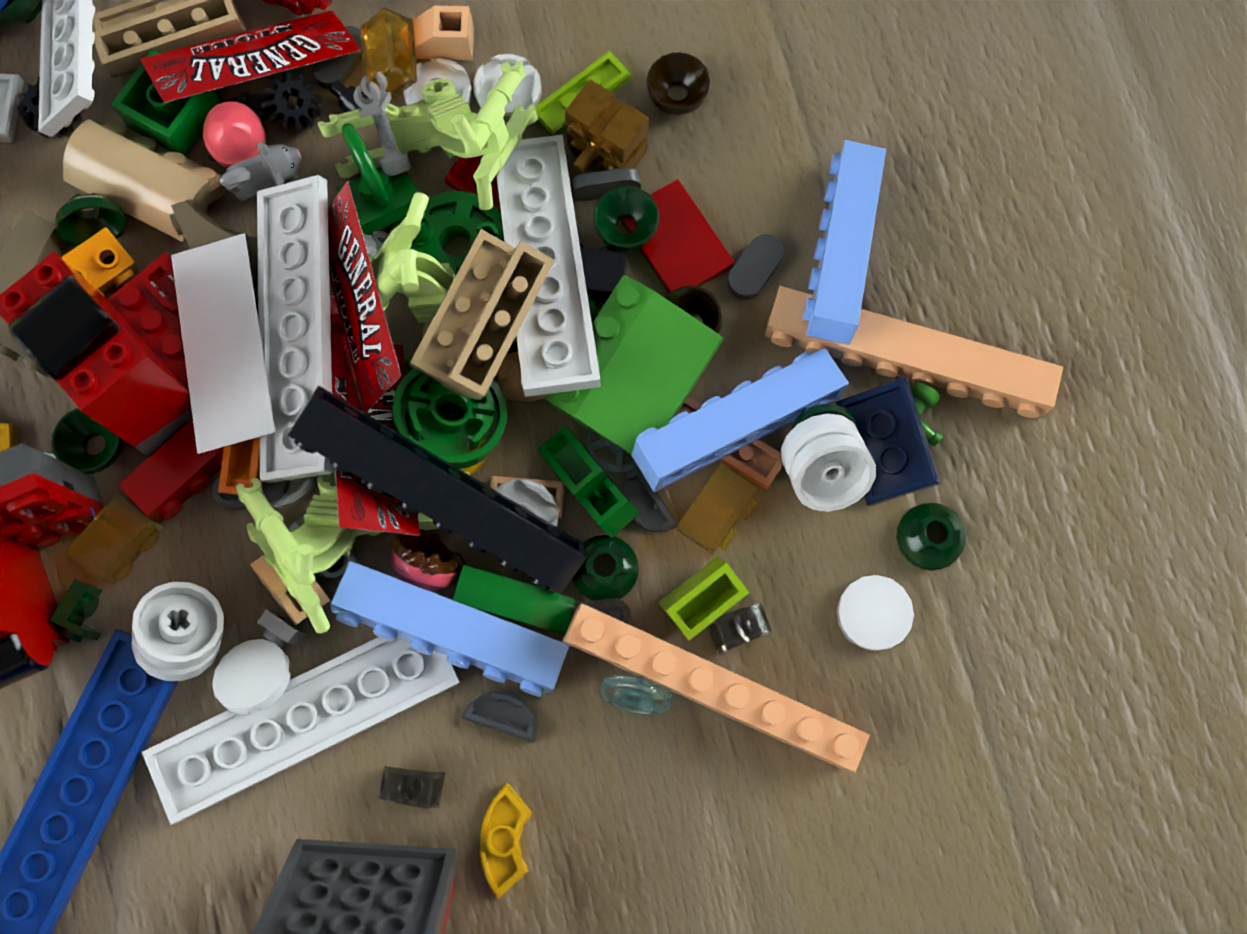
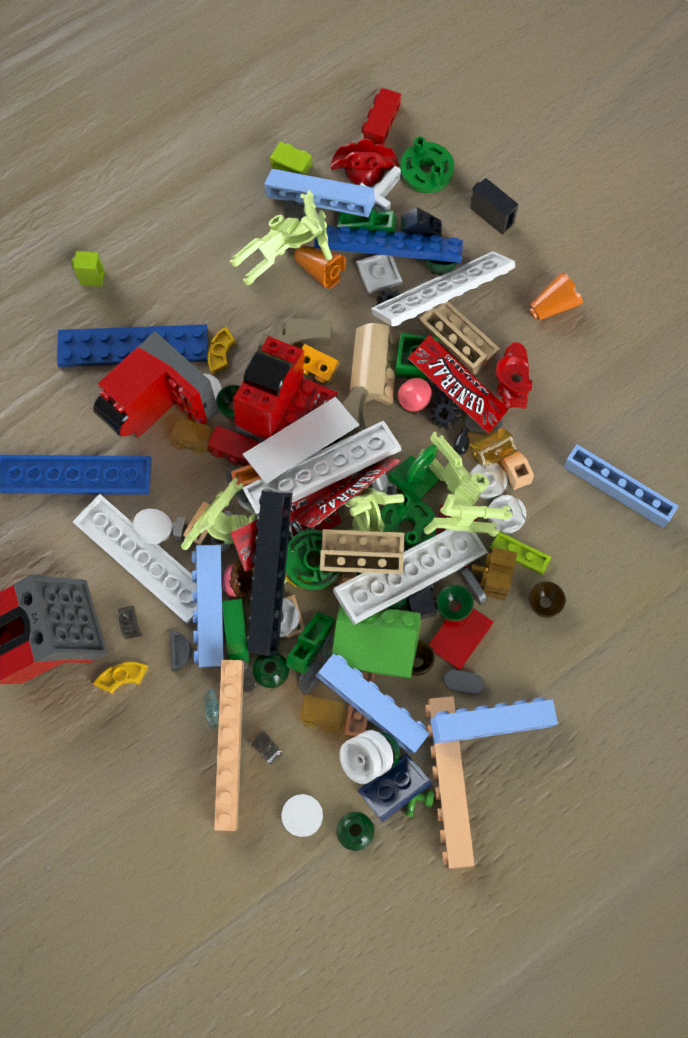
camera: 70 degrees right, 5 degrees down
(75, 607) = (154, 434): dark green bracket -> none
(78, 226) = (341, 350): dark green piece -> none
(177, 631) = (159, 494): white wheel -> none
(271, 168) = (397, 417): light grey animal -> none
(393, 161) = (457, 454): light grey bar -> none
(703, 597) = (272, 722): lime piece -> none

